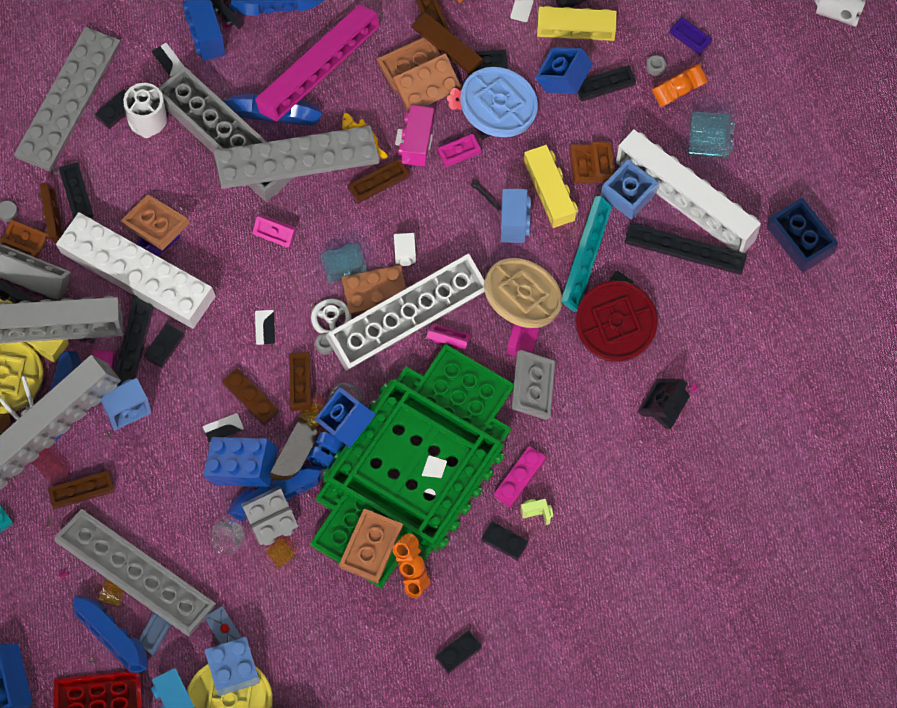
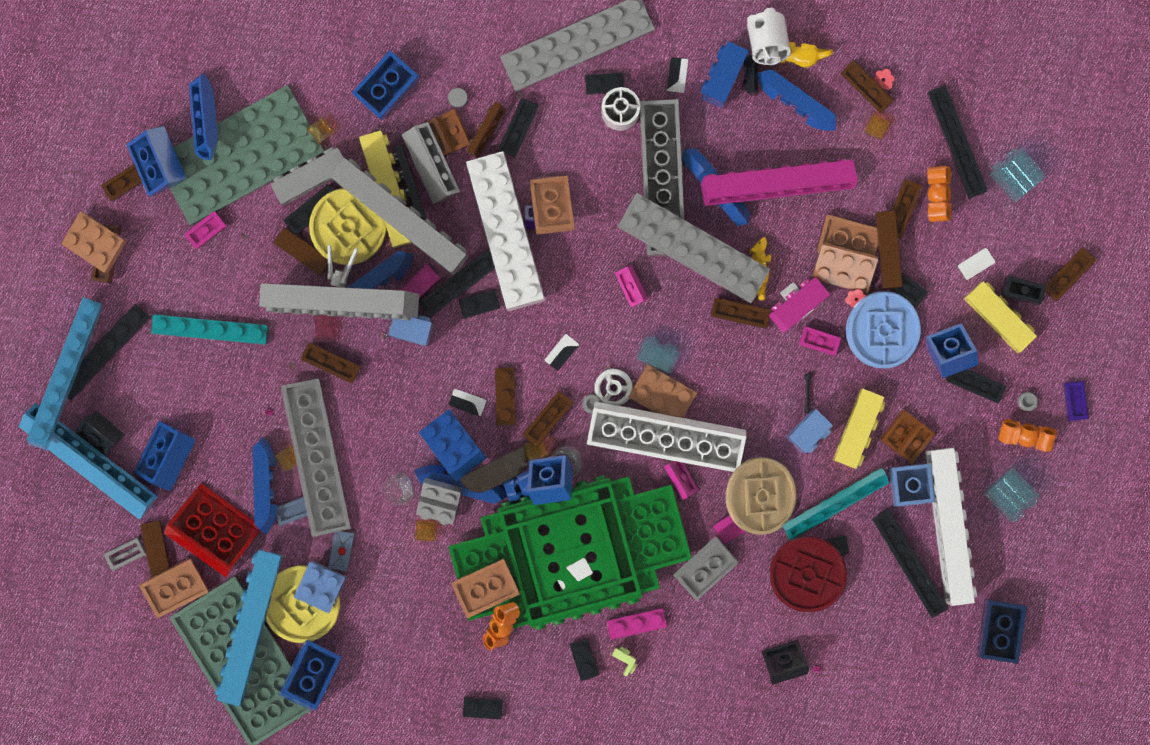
camera: 45 degrees right, 20 degrees up
(404, 249) = (710, 384): white brick -> none

